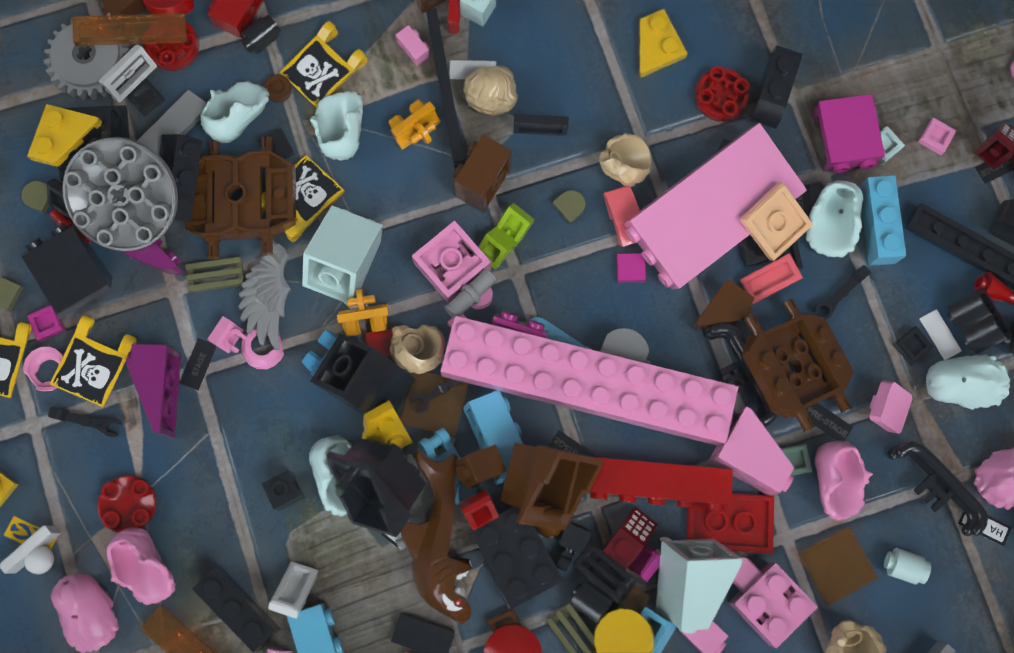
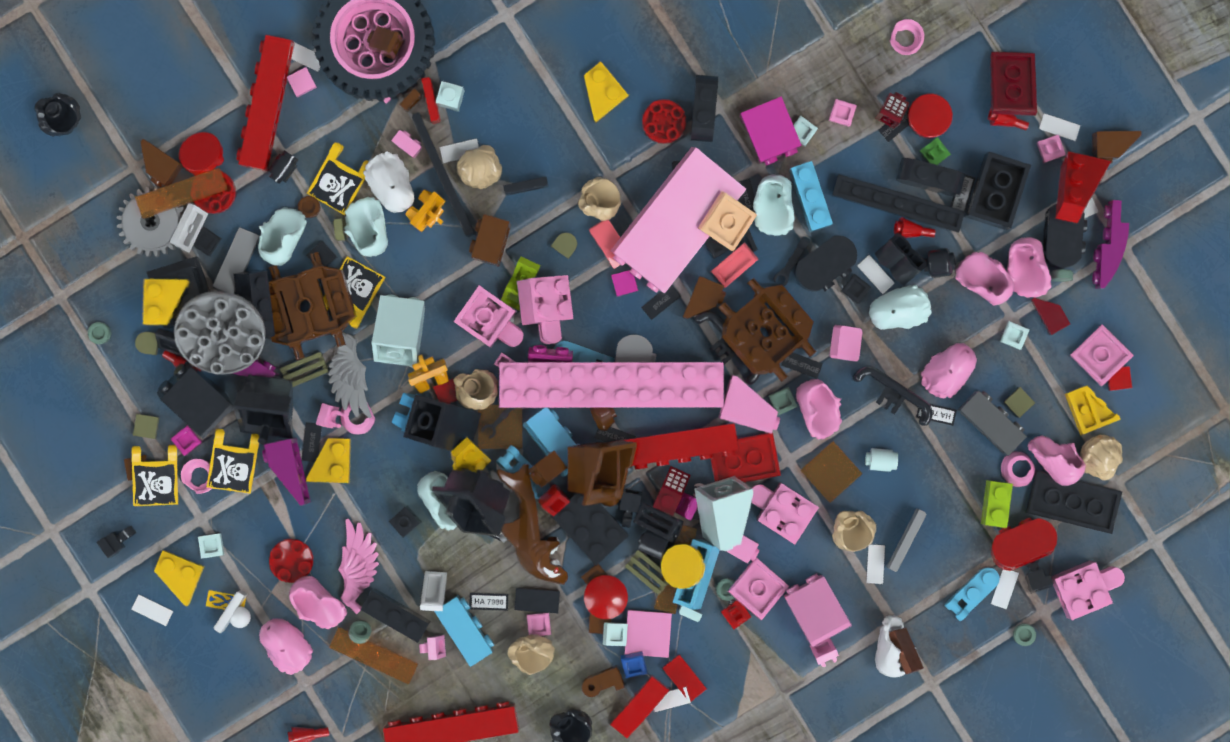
camera: 15 degrees left, 10 degrees up
(34, 459) = (211, 545): none -> light aqua tile
(84, 420) = (254, 507): black piece -> none
(149, 302) = (265, 407): none -> black piece
(185, 619) = (359, 632): none -> sand green tile
(208, 531) = (357, 565): none -> bright pink animal
(215, 394) = (332, 462): none -> yellow wing
(304, 124) = (339, 231): none -> olive tile
(361, 622) = (488, 601): none -> sticker
(380, 79) = (385, 173): none -> white piece
(470, 294) = (506, 340): light grey pin -> none
(530, 264) = (545, 303): none -> bright pink brick
(566, 422) = (603, 417): none -> reddish brown cone
(669, 302) = (660, 302): none -> black sticker
(884, 305) = (826, 263): none -> black brick

